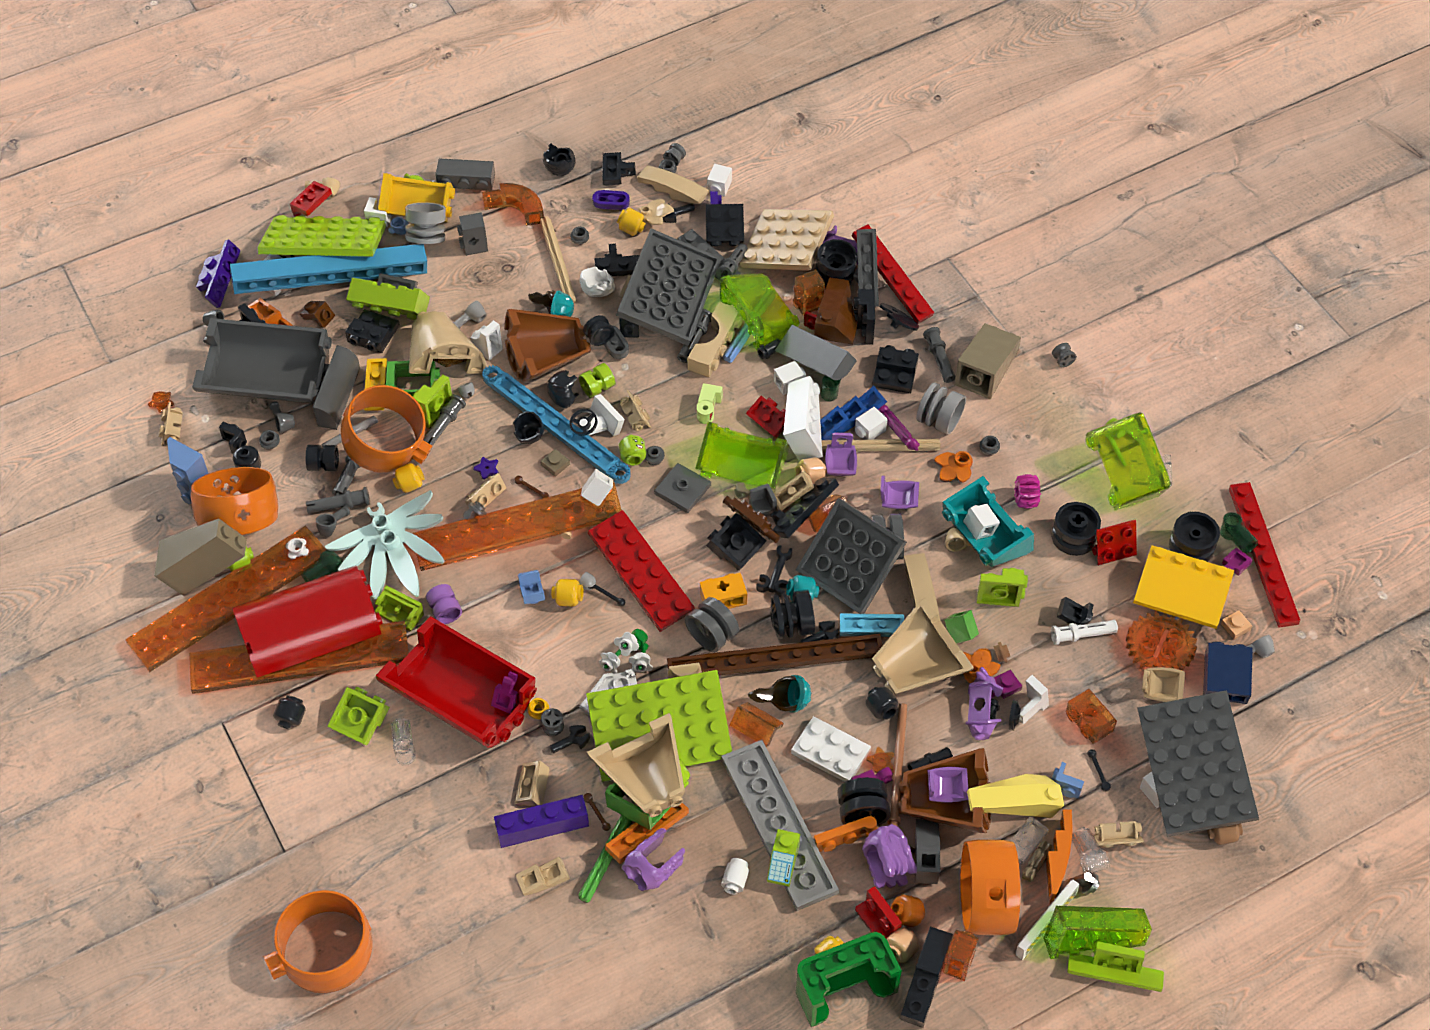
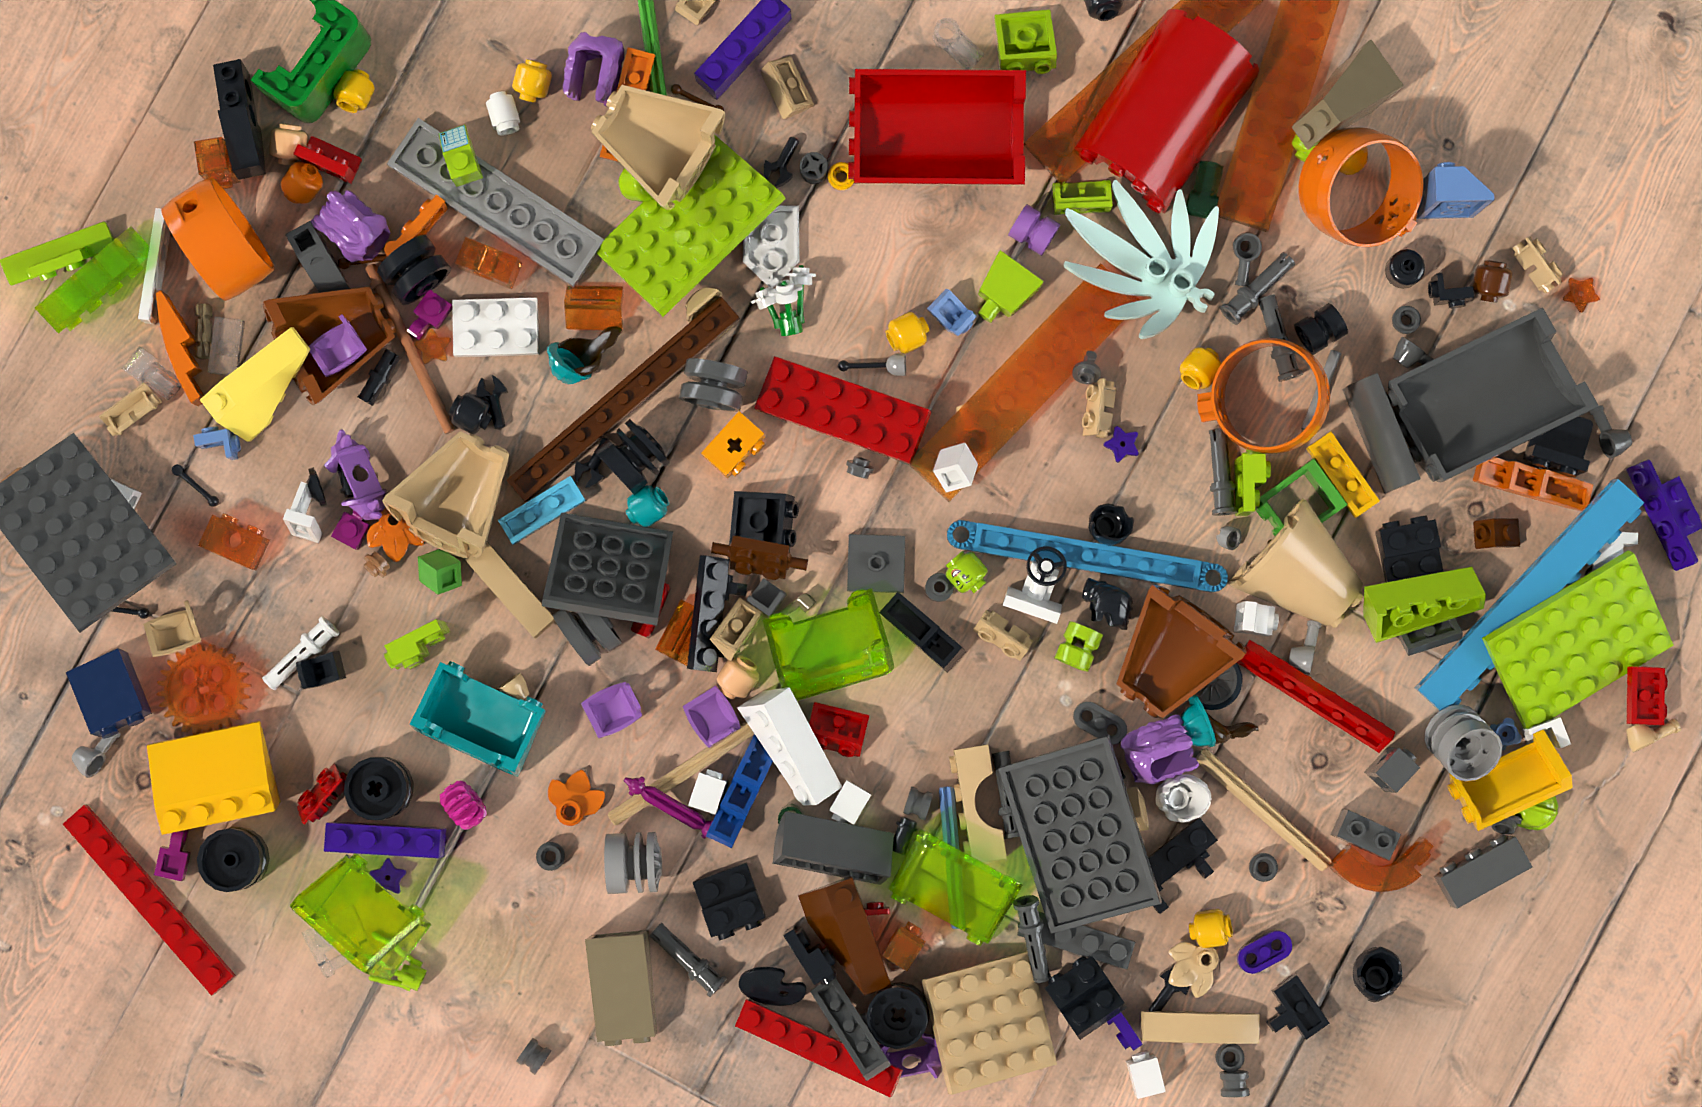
camera: 150 degrees right, 30 degrees up
(203, 429) = (1492, 280): none -> reddish brown head
(294, 544) = (1250, 181): white plate -> none
(482, 287) = (1316, 697): none -> red plate
(487, 584) = (1006, 287): none -> lime torso
(504, 695) = (879, 156): magenta plate -> none
(512, 218) = (1365, 834): none -> dark grey brick
(519, 480) = (1075, 454): reddish brown hinge -> none
(555, 462) = (1049, 504): dark tan plate -> none
(592, 303) = (1159, 751): none -> medium lavender piece
(598, 330) = (1122, 712): black wheel -> none
(654, 539) = (859, 467): none -> dark grey plate
(681, 435) = (922, 632): none -> black slope
(700, 885) = (532, 80): none -> yellow head
(708, 397) = (921, 690): yellowish green leg -> none
(749, 357) = (918, 803): none -> dark grey wheel
(773, 584) = (687, 497): black bar -> none
(809, 785) = (488, 263): none -> clear orange brick
(861, 708) = (495, 407): none -> black bar
(981, 521) = (490, 720): white brick -> none
(1068, 488) = (385, 839): none -> dark purple brick
(1088, 882) = (134, 336): flat silver plate -> none
(1095, 489) = (394, 873): none -> dark purple plate
(1234, 530) = (184, 900): clear green piece -> none
(1236, 624) = (133, 775): light nougat plate -> none

